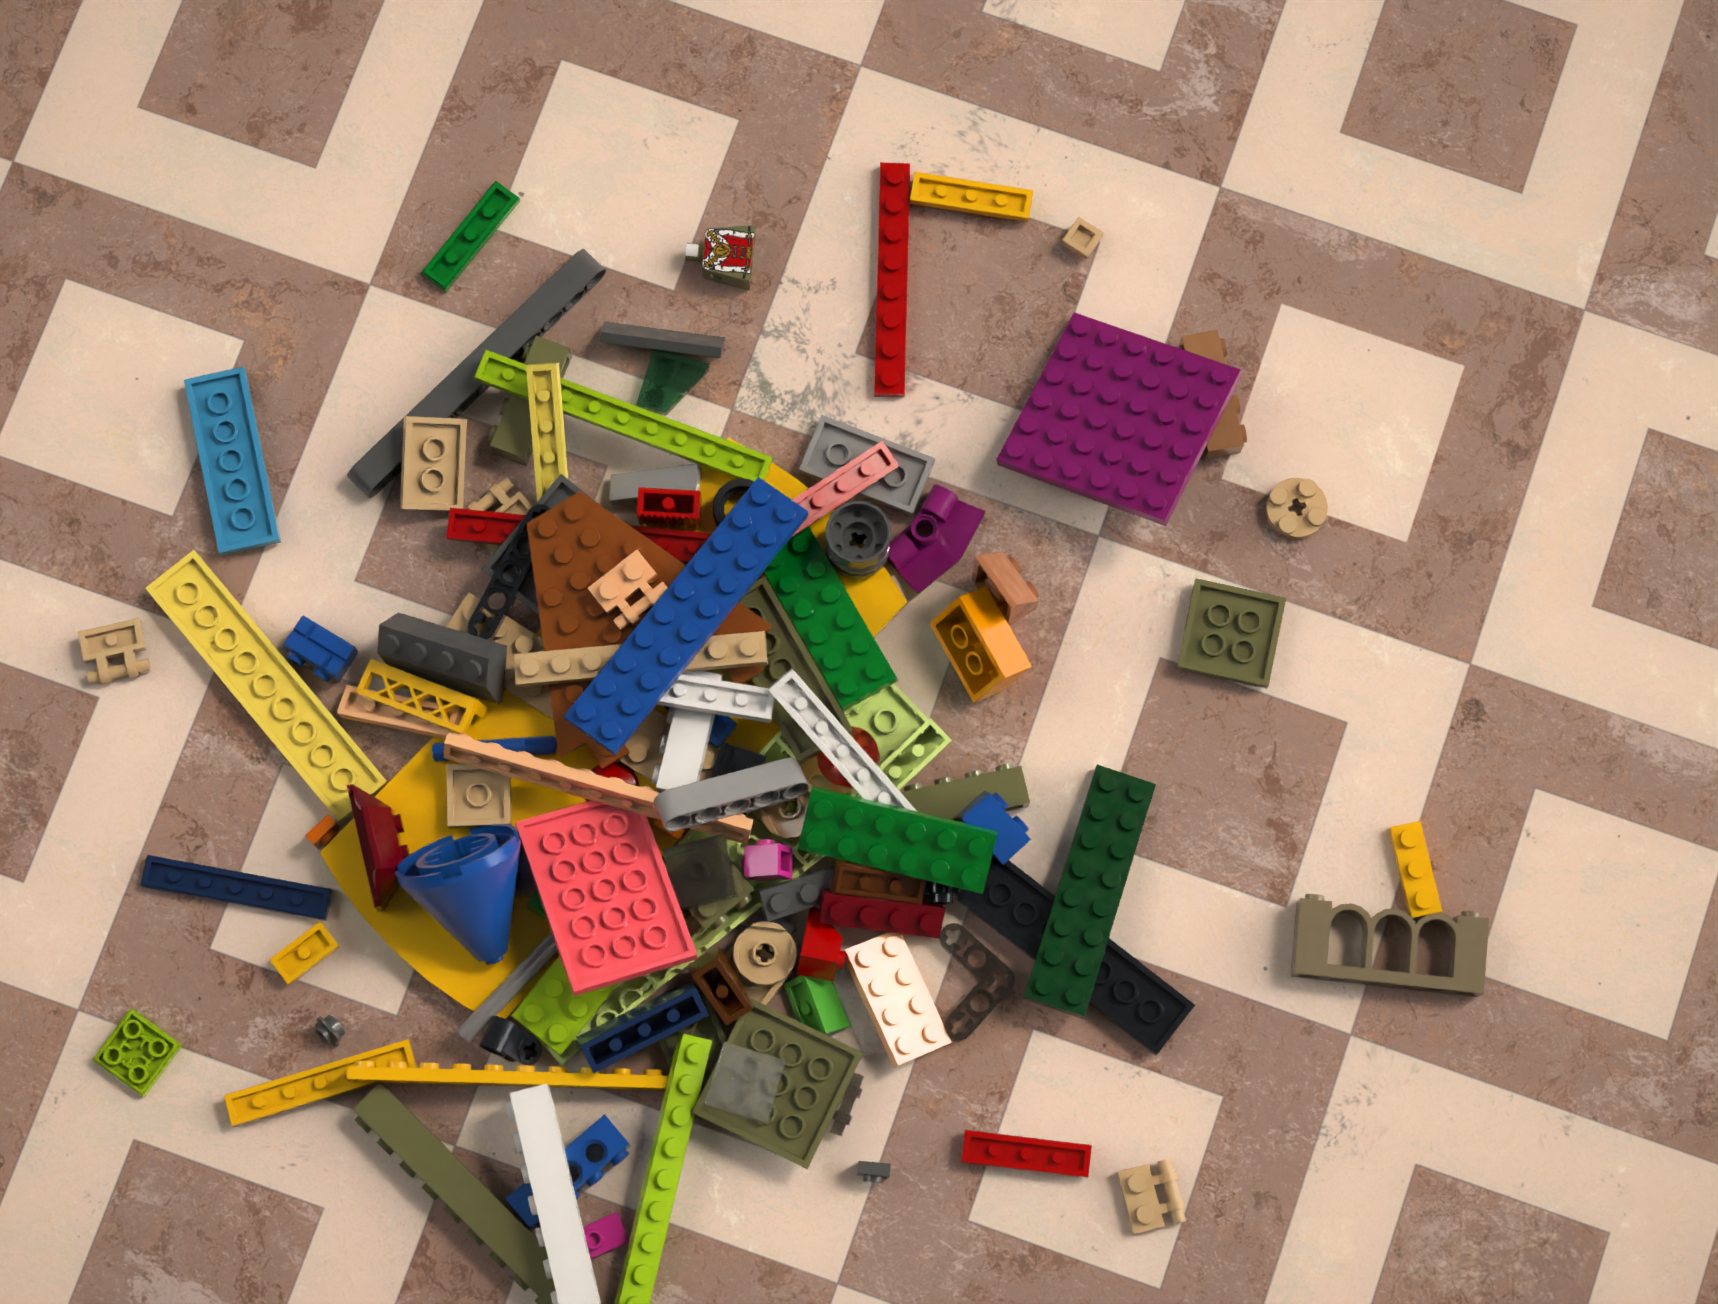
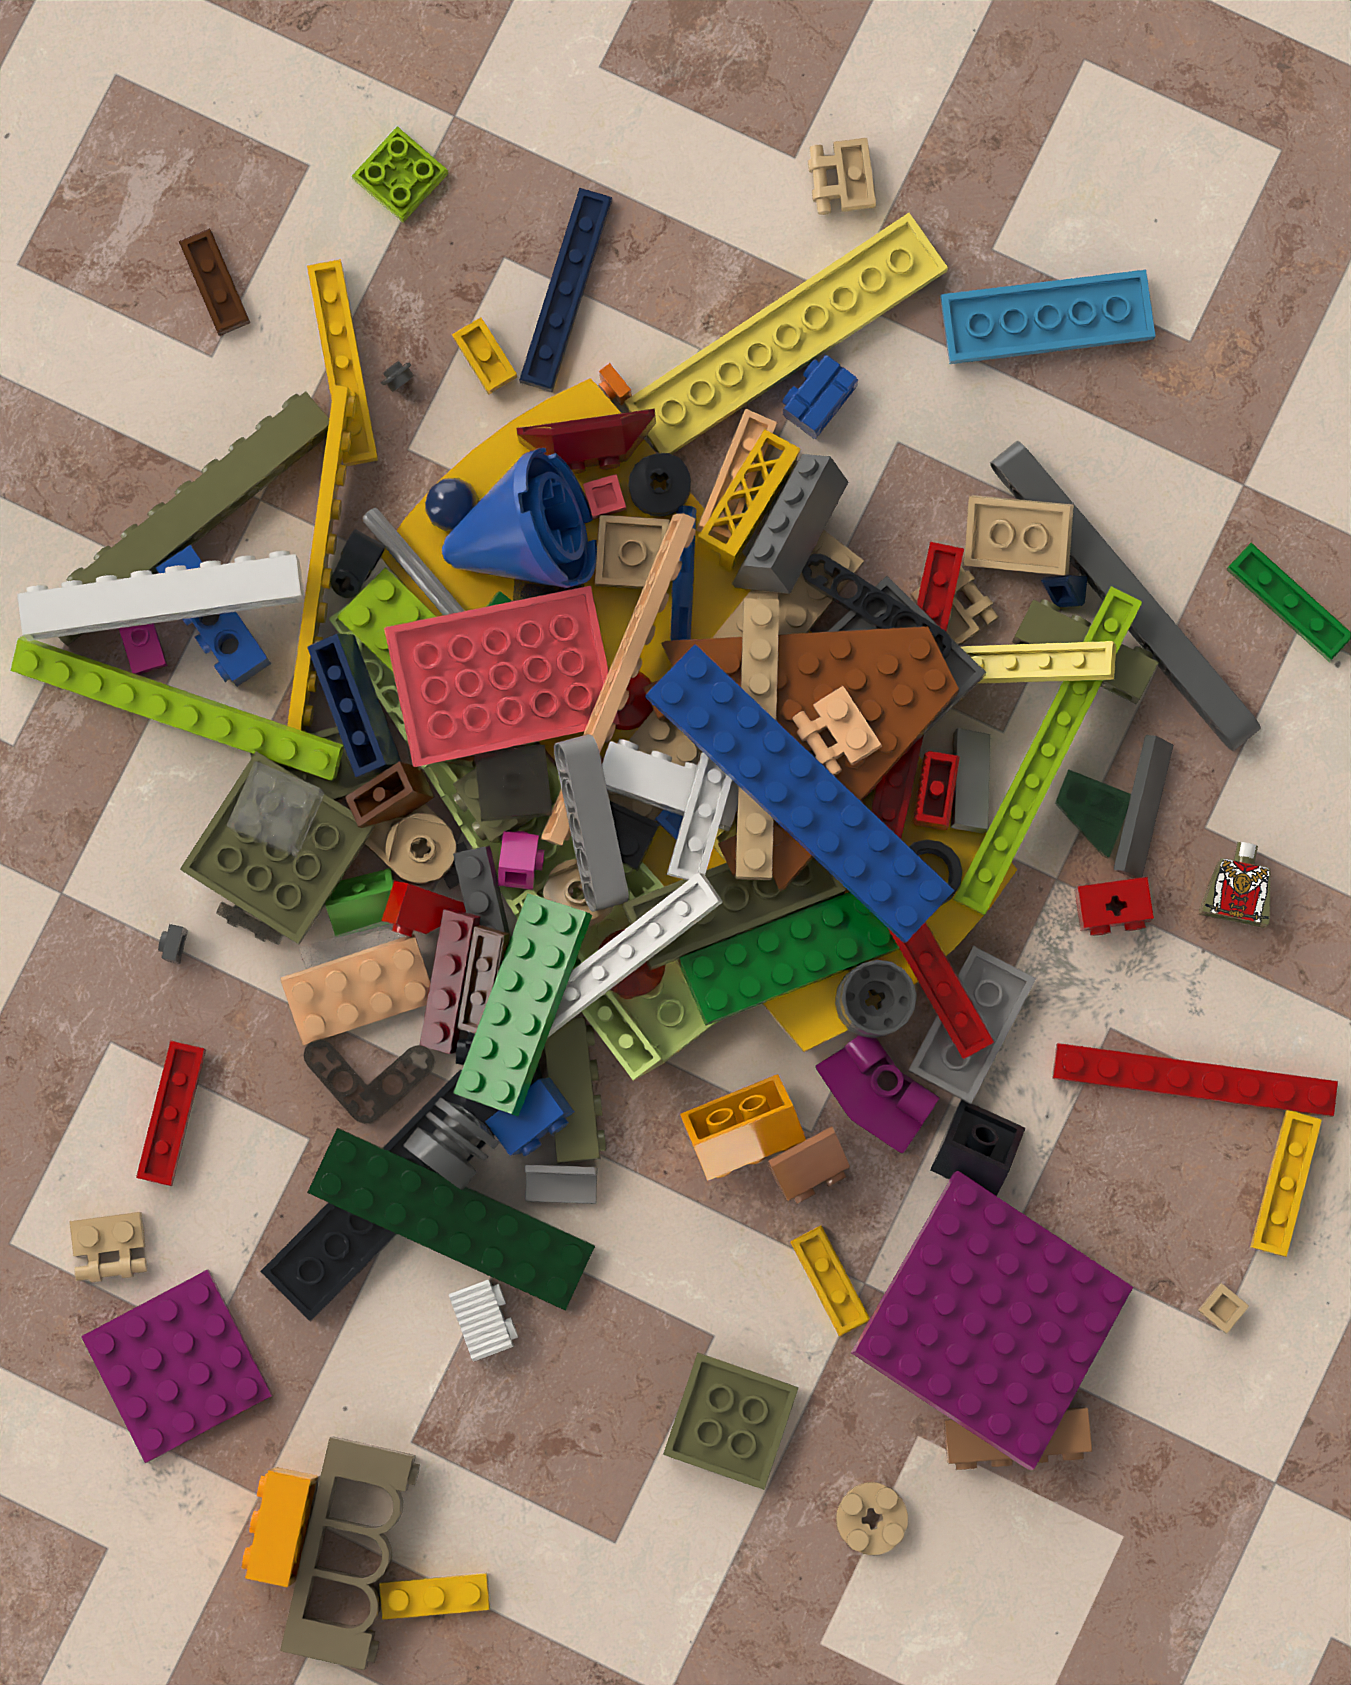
camera: 105 degrees right, 5 degrees up
(252, 1213) = (214, 282): none -> reddish brown tile
(414, 760) = (660, 468): none -> black piece
(429, 825) = (604, 496): none -> coral plate
(447, 962) = (450, 502): none -> dark blue hair
(478, 420) = (1066, 590): none -> dark blue slope
(756, 373) = (1130, 893): none -> red brick
(971, 449) = (978, 1146): none -> black slope
(1026, 891) = (451, 1143): none -> dark grey wheel
(1046, 800) = (561, 1184): none -> light grey panel
(1100, 563) = (830, 1280): none -> yellow tile
(1173, 854) = (482, 1319): none -> white brick
(1248, 1121) = (176, 1366): none -> magenta plate
(1377, 1006) = (279, 1526): none -> light orange brick

